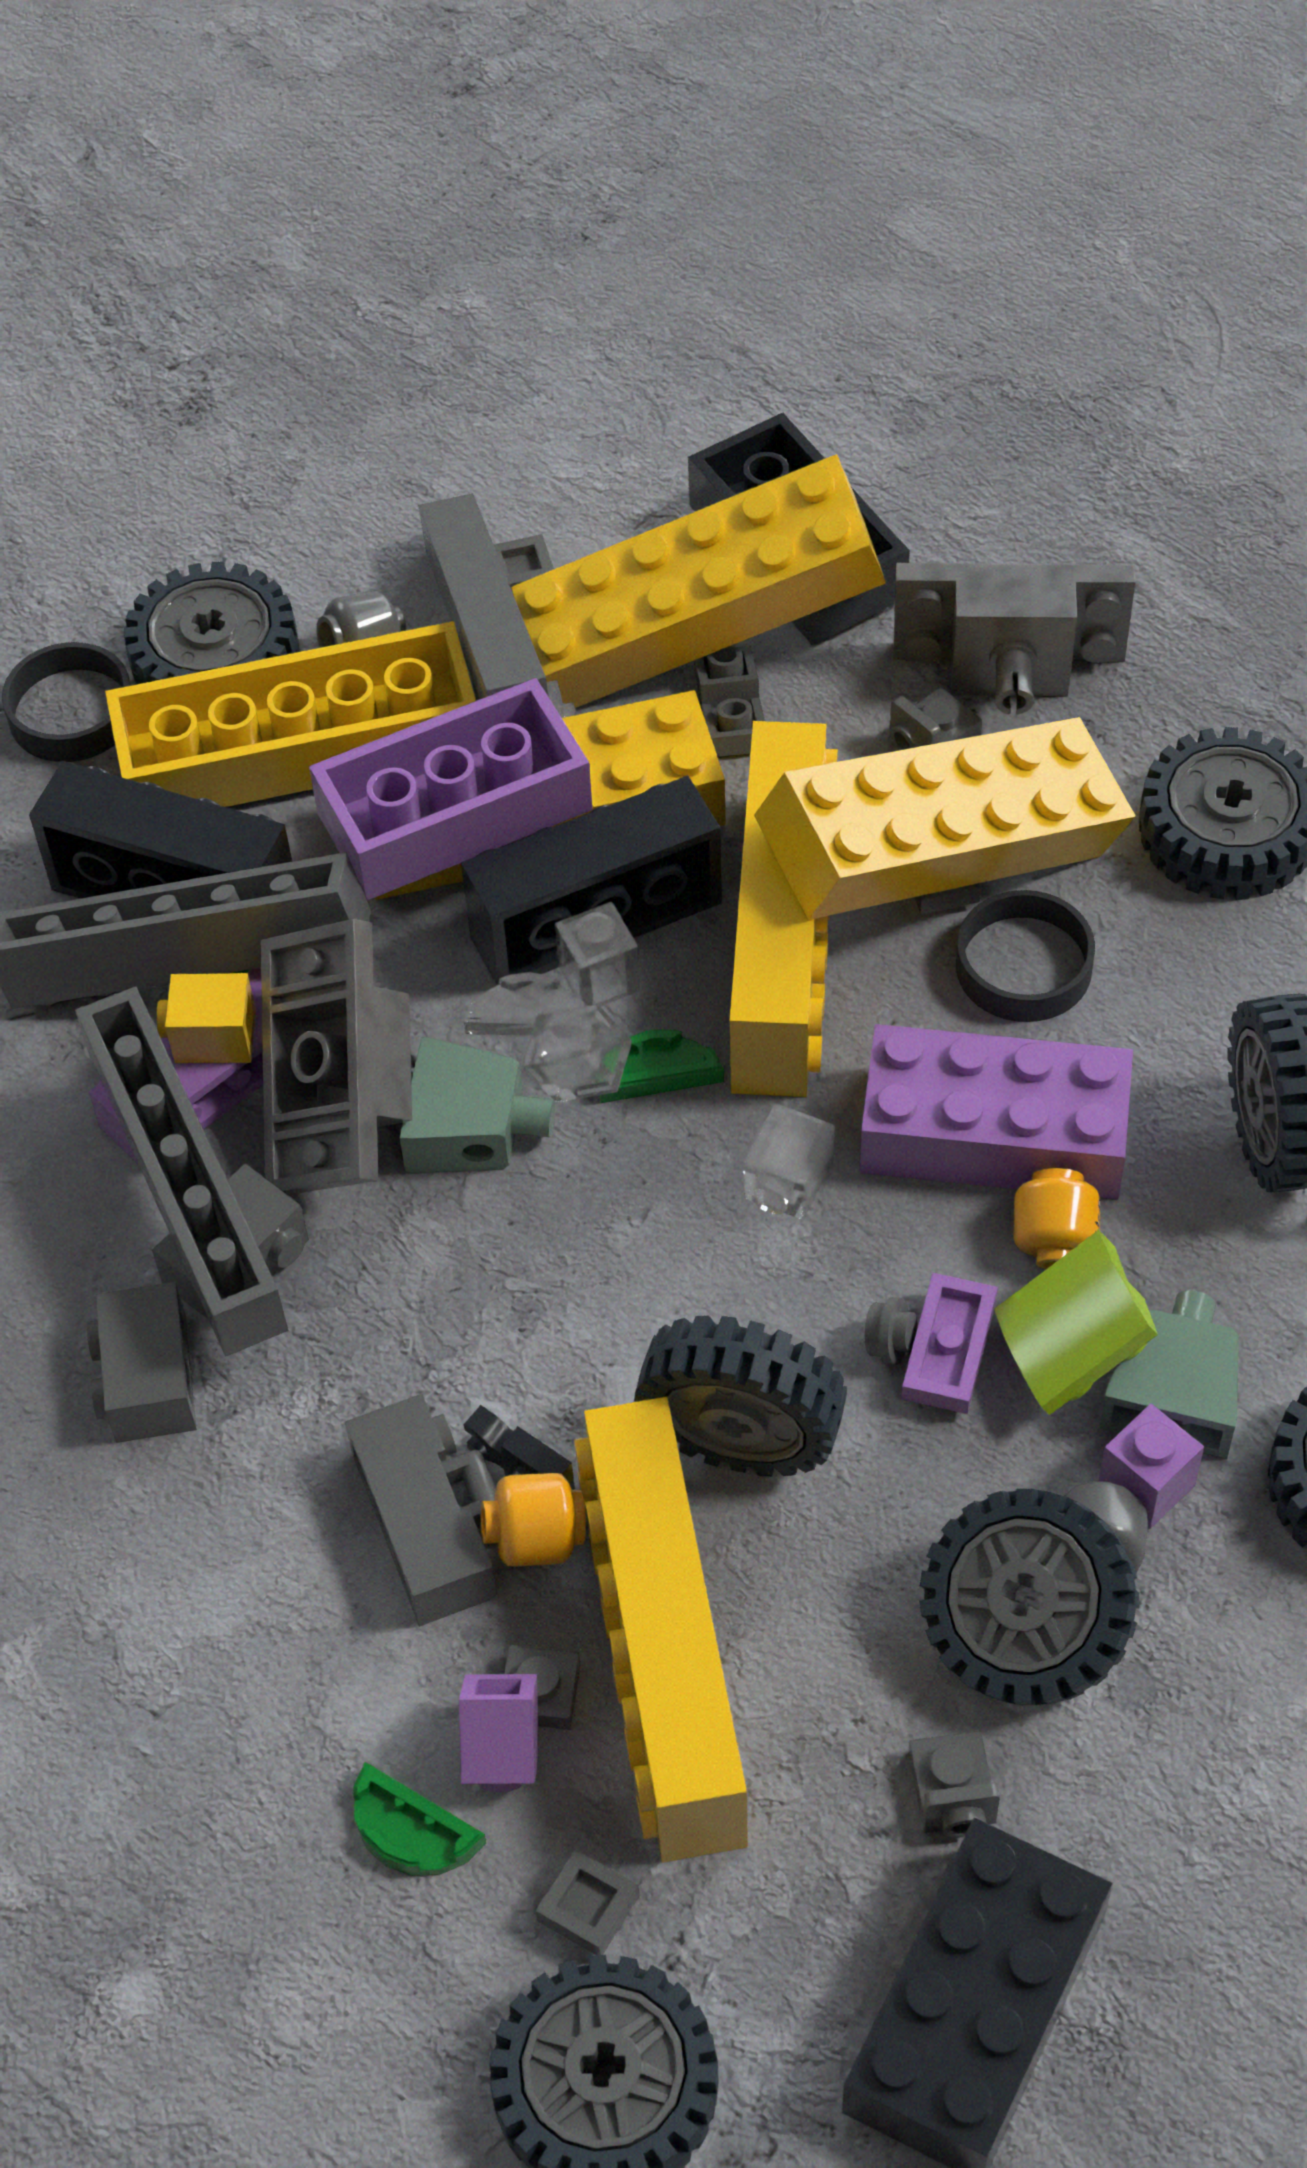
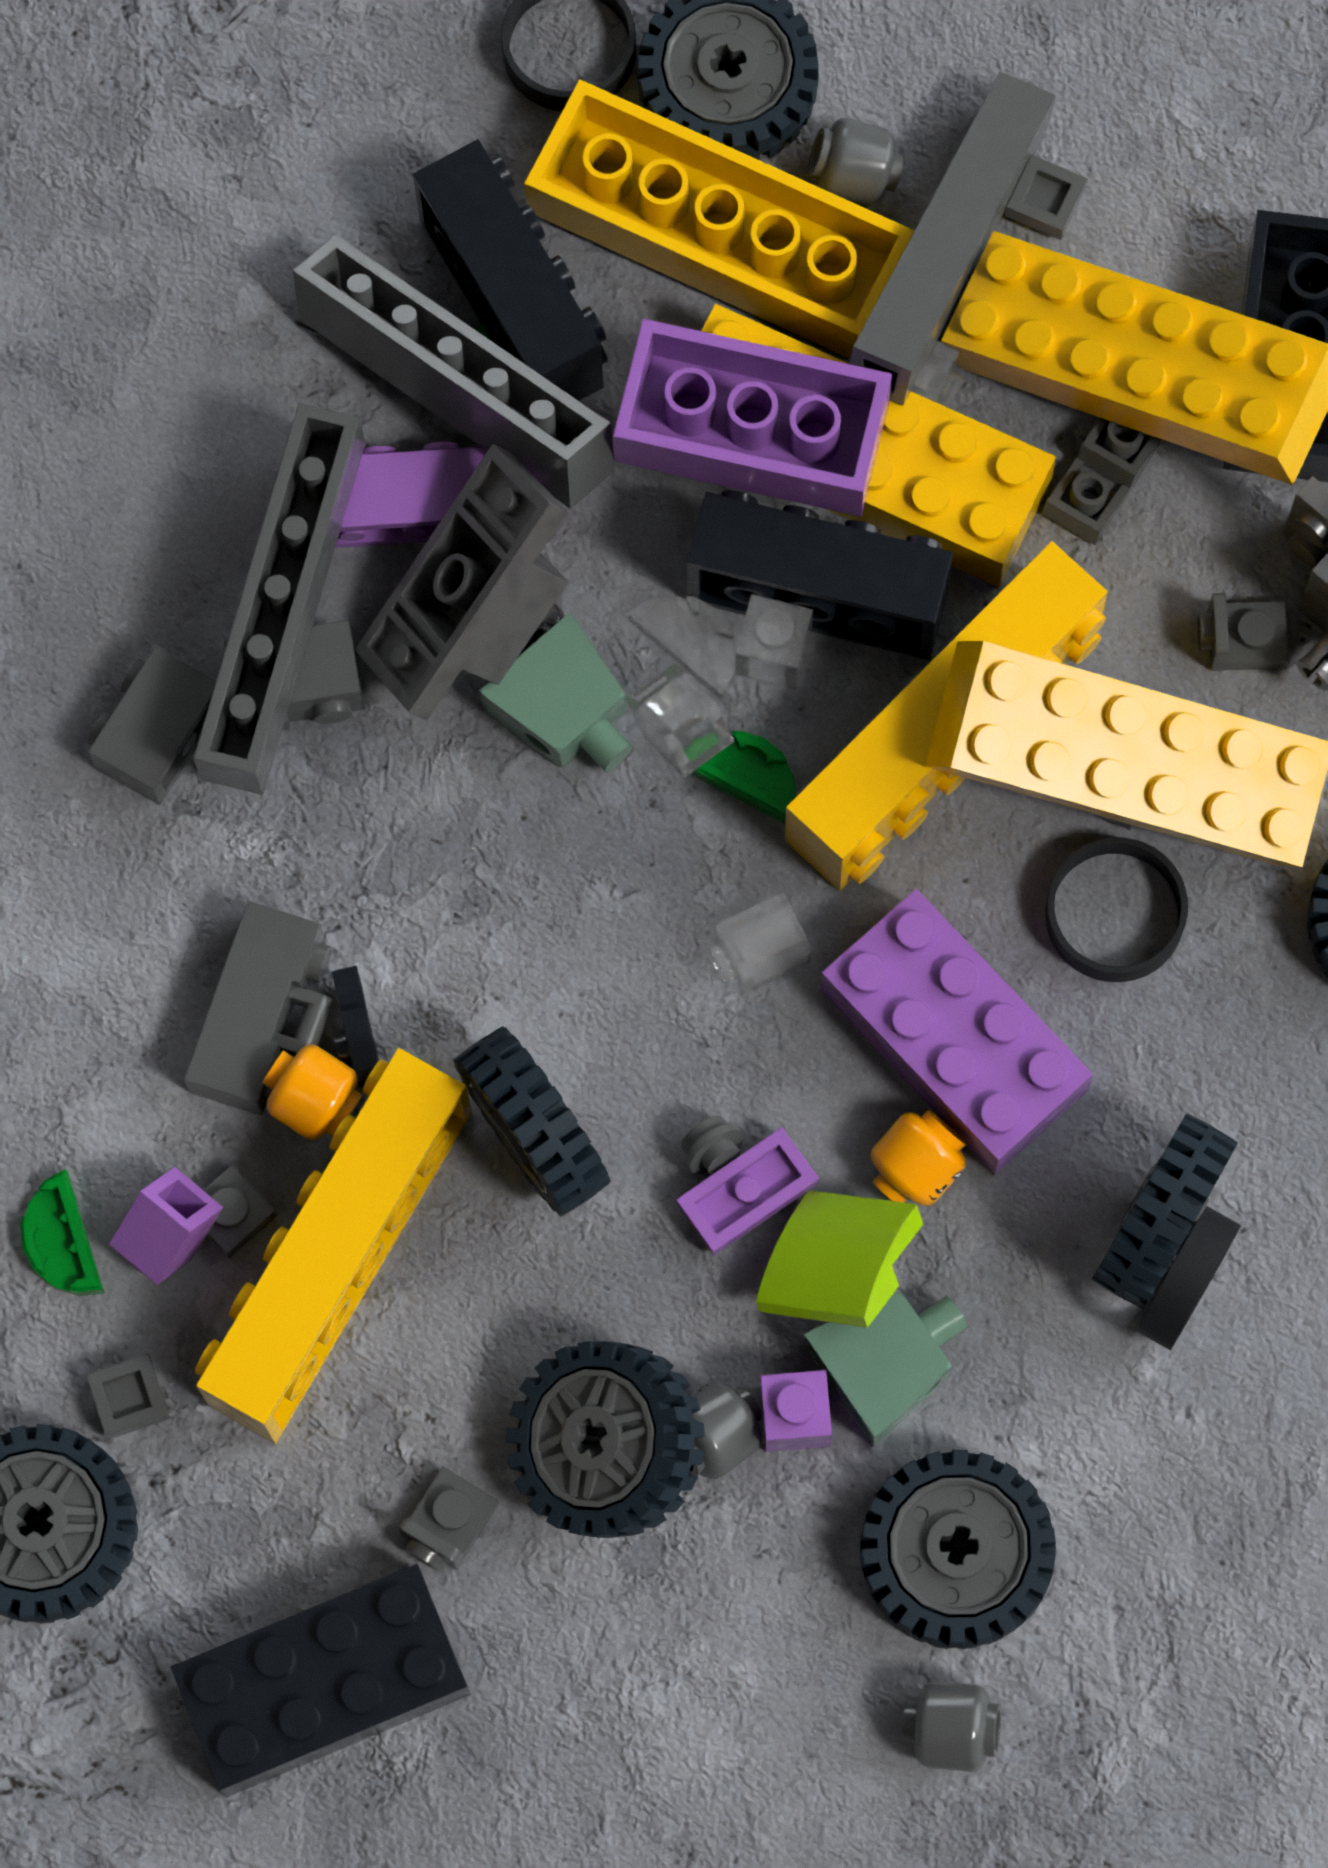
camera: 40 degrees right, 20 degrees up
(208, 1018) = (411, 473): yellow brick -> none

